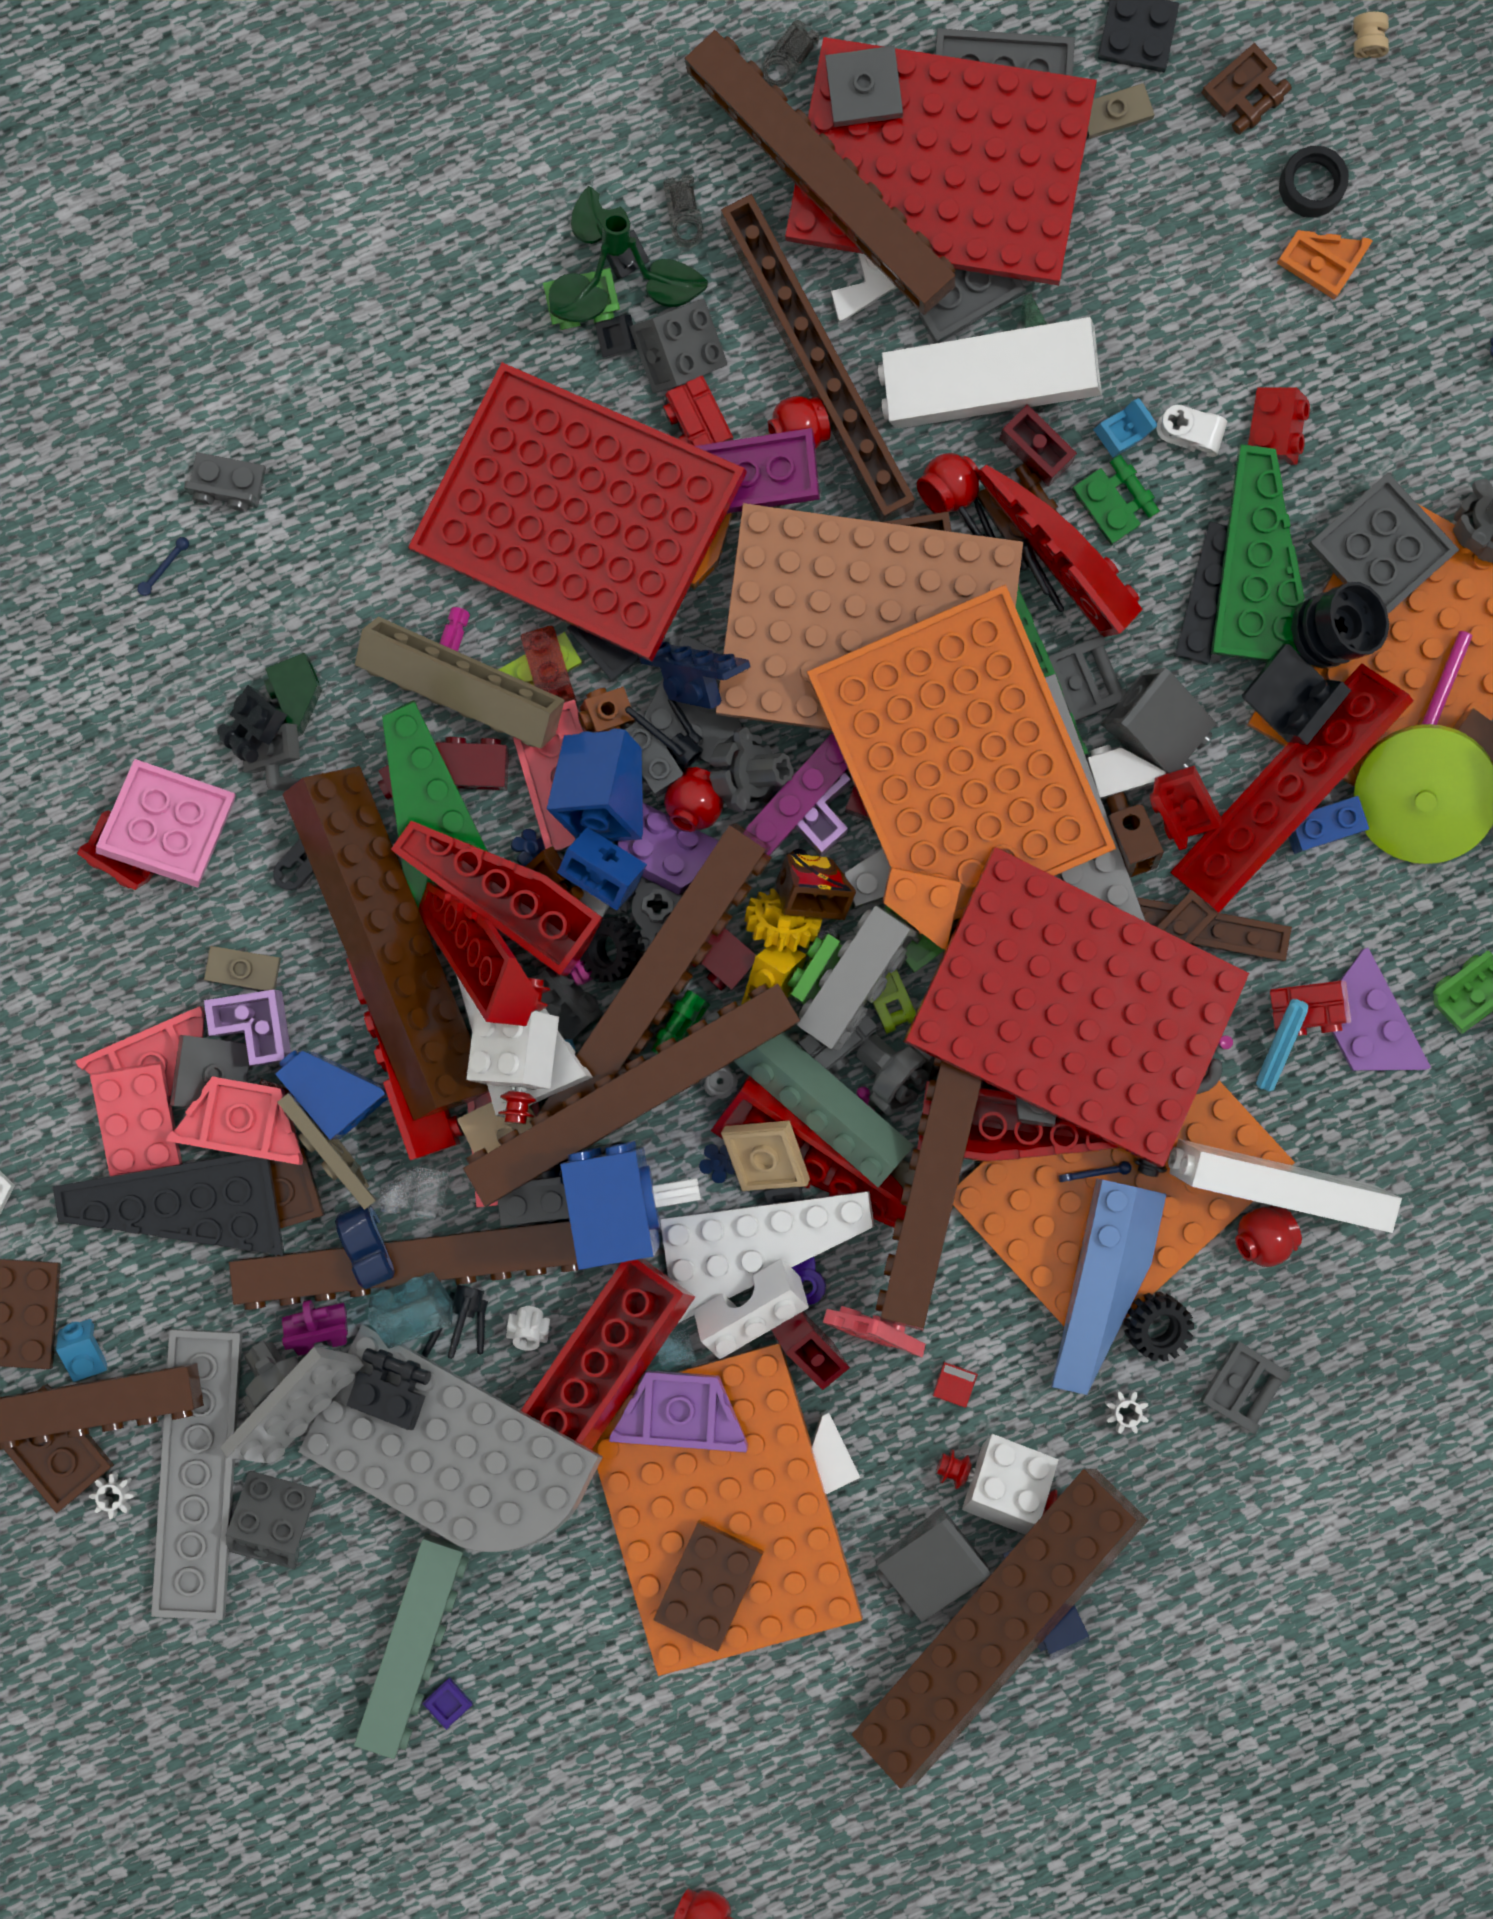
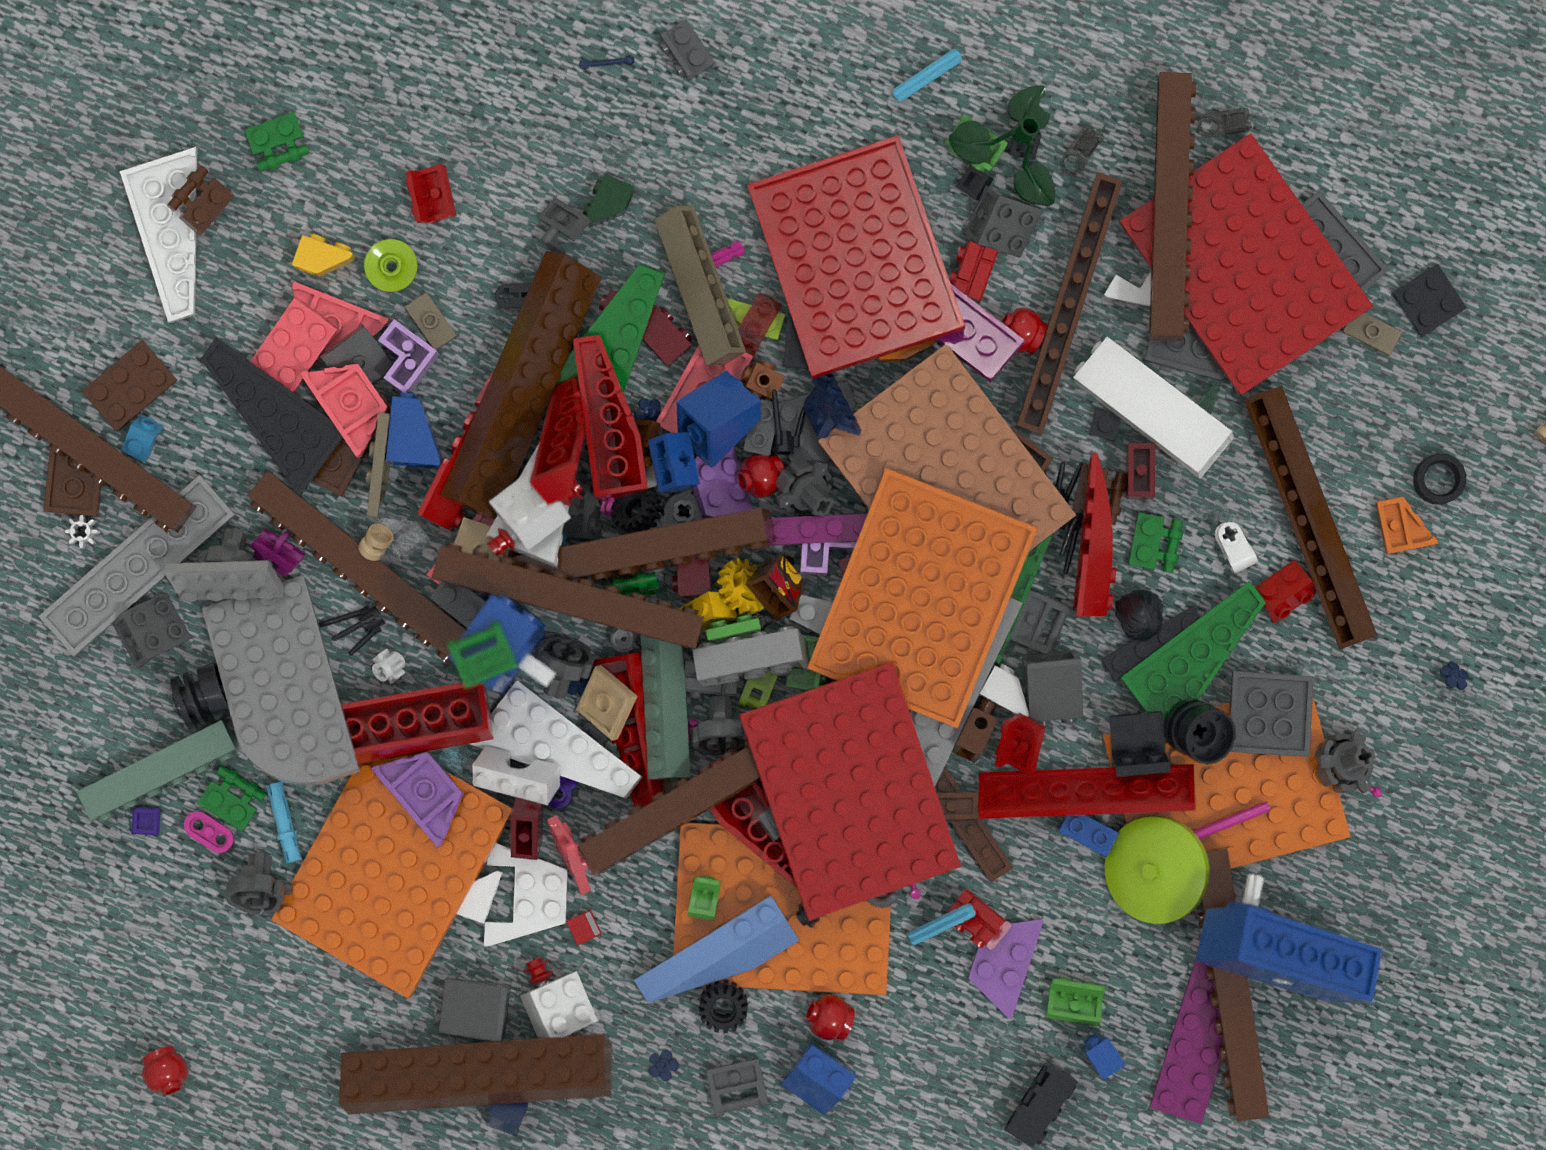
camera: 45 degrees right, 0 degrees up
(77, 1014) = (319, 257): none -> yellow slope
(134, 951) = (381, 255): none -> lime dish
(165, 823) = (469, 203): bright pink plate -> none
(255, 722) = (574, 195): black plate -> none
(364, 1246) = (347, 534): dark blue animal -> none
(377, 1544) = (199, 696): none -> black wheel
(385, 1399) = (276, 627): black plate -> none
(400, 1231) = (375, 542): none -> tan wheel
(410, 1310) = (337, 593): clear light blue brick -> none
(472, 283) = (926, 75): none -> medium azure axle
(509, 1610) = (229, 806): none -> green plate
(518, 1654) = (209, 832): none -> dark pink plate
(578, 1573) = (283, 821): none -> medium azure pin
(613, 1661) = (256, 888): none -> dark grey piece
(622, 1237) = (487, 662): none -> green plate
(692, 1159) = (567, 665): none -> dark grey piece
(708, 1585) = (346, 898): reddish brown plate -> none
(864, 86) = (1243, 183): dark grey plate -> none
(884, 1401) = (538, 897): none -> white wing
(923, 902) = (825, 652): orange wing -> none
(948, 483) = (1071, 443): red piece -> none
(960, 437) = (1104, 425): none -> black plate
(1040, 1244) = (704, 898): none -> bright green bracket
(1124, 1168) = (790, 903): dark blue hinge -> none
(1124, 1402) = (657, 1042): white gear -> none
(1125, 428) = (1198, 509): dark azure bracket -> none
(1157, 1437) = (663, 1065): none -> dark blue plant
(1170, 577) = (1140, 614): none -> black hair
(1235, 332) = (1310, 517): none -> reddish brown brick
(1240, 80) = (1455, 383): reddish brown plate -> none
(1284, 1185) = (864, 997): white brick -> none
(1315, 1301) = (819, 1078): none -> blue slope

